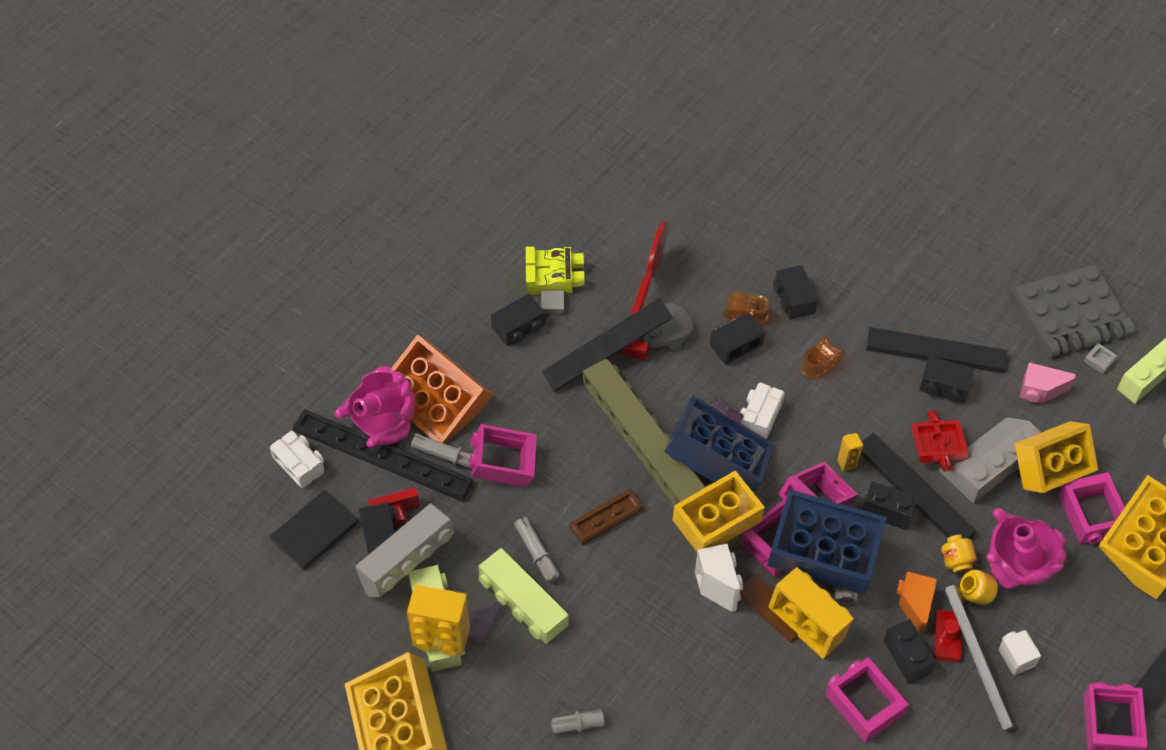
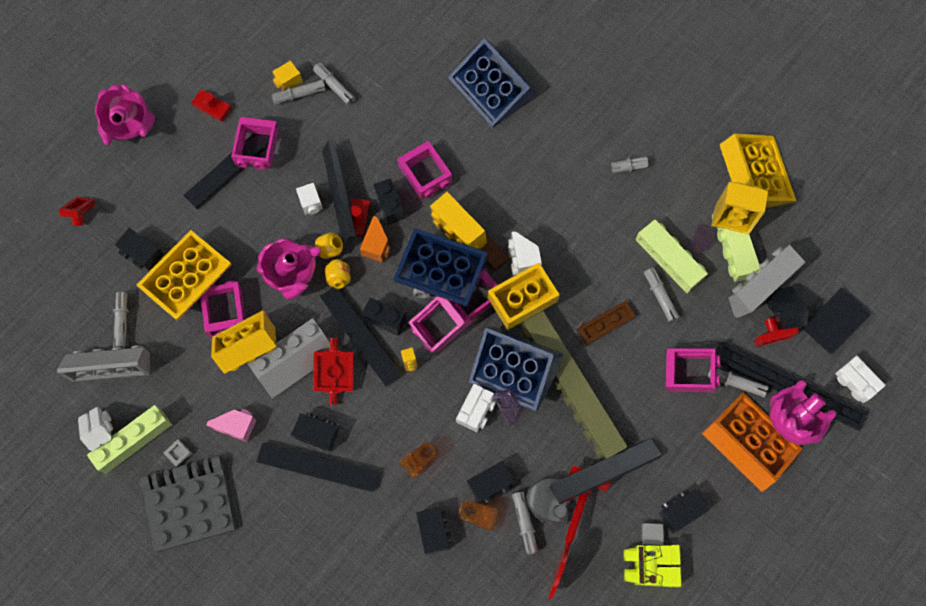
camera: 175 degrees left, 15 degrees up
(691, 297) = (525, 522): none -> light grey axle

